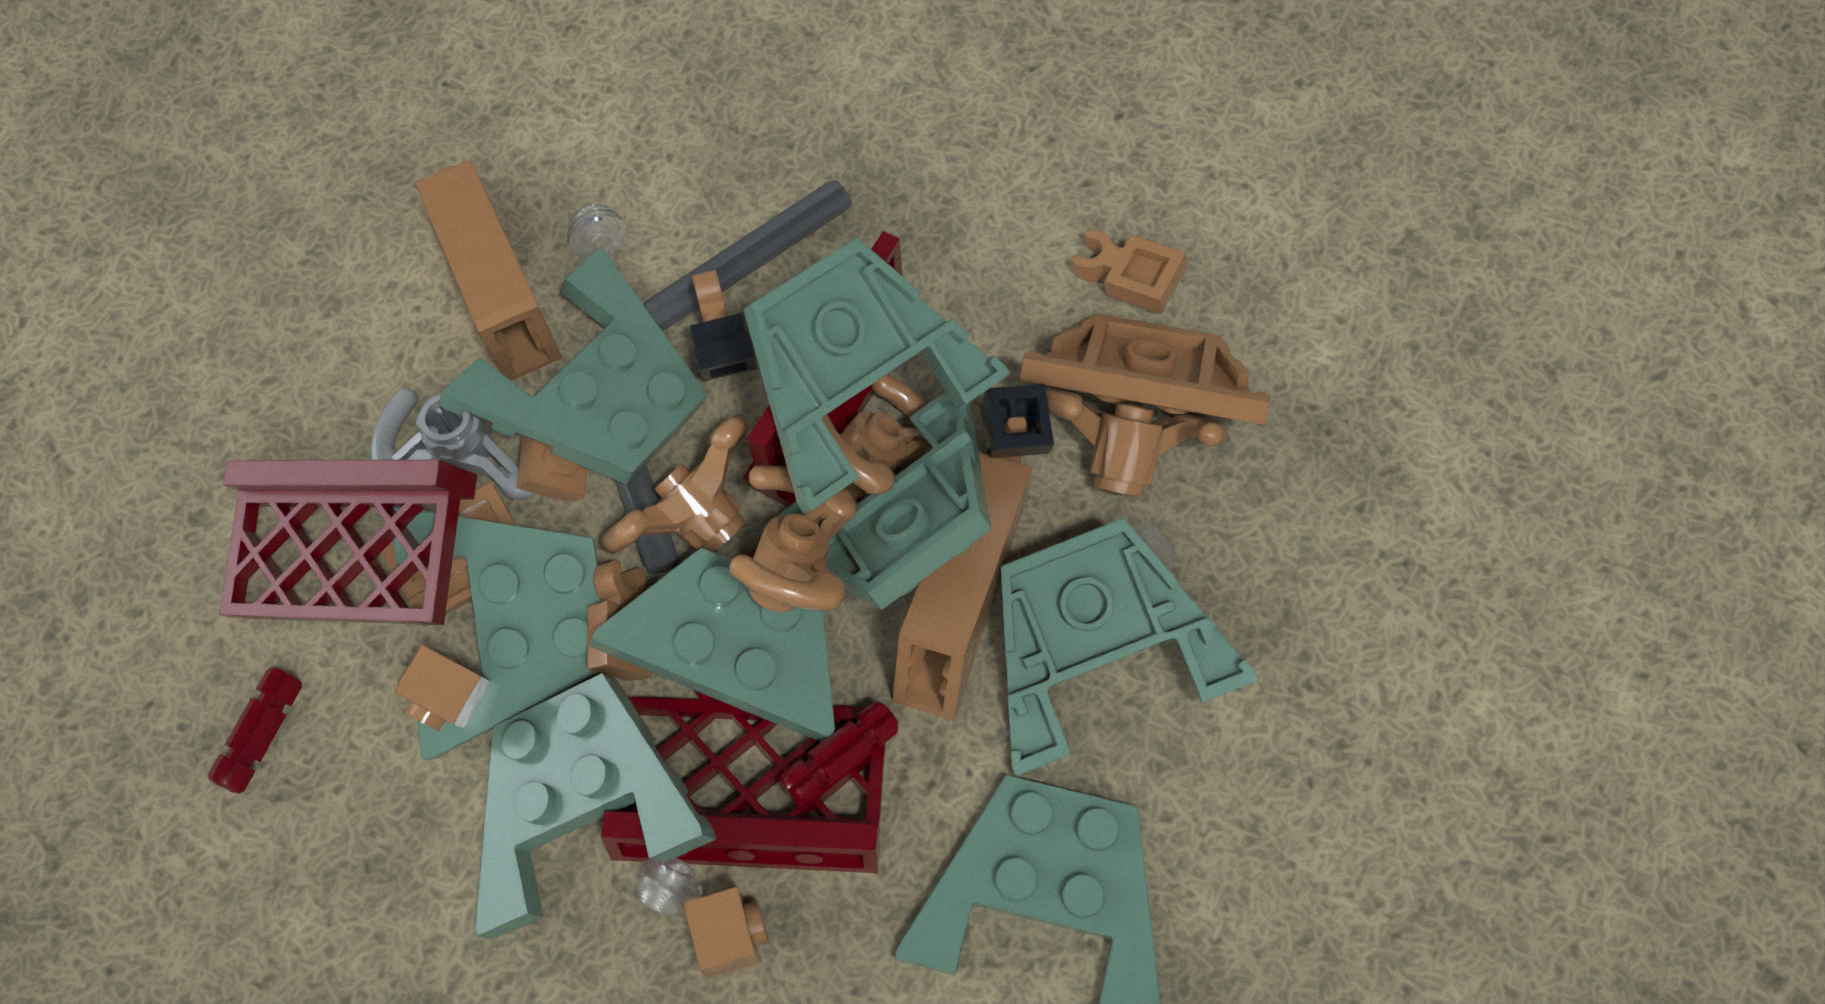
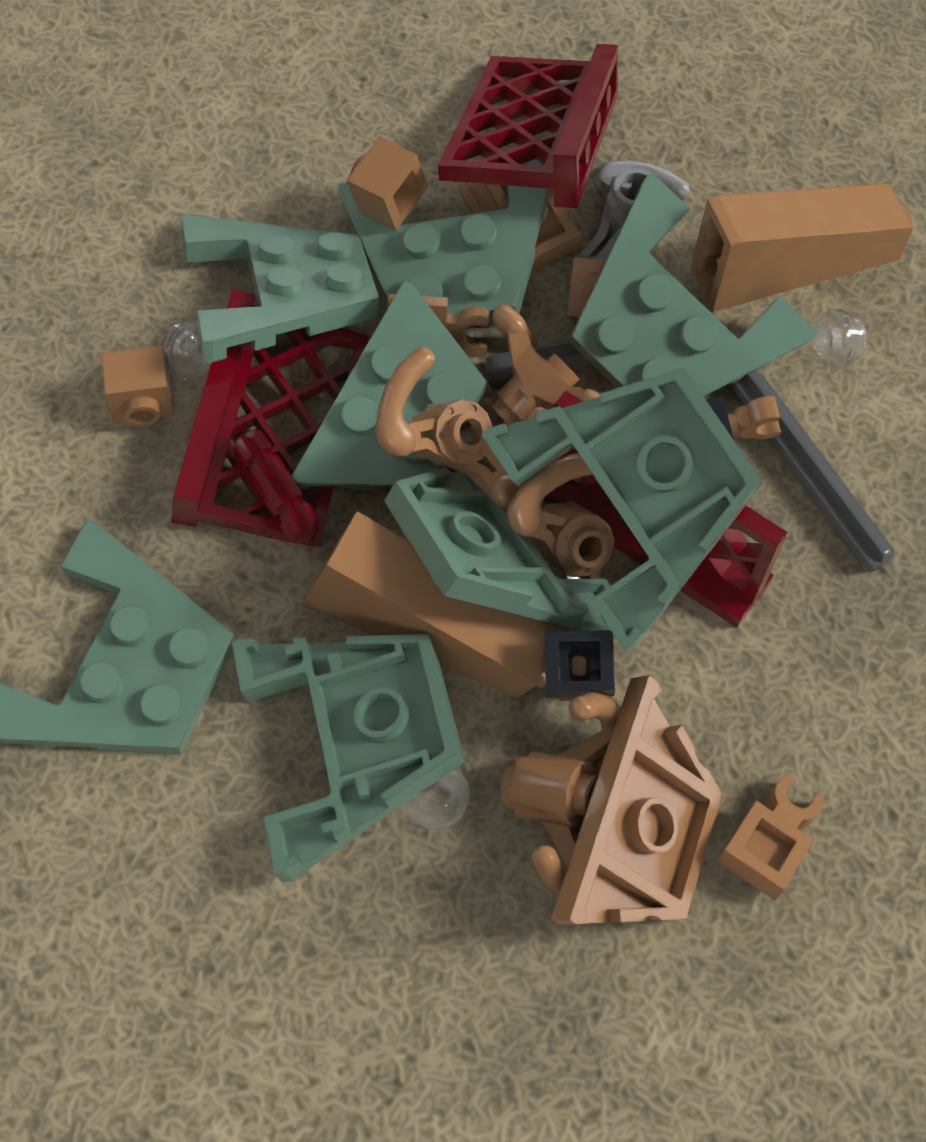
camera: 90 degrees right, 5 degrees down
(255, 730) = (387, 78): dark red axle -> none

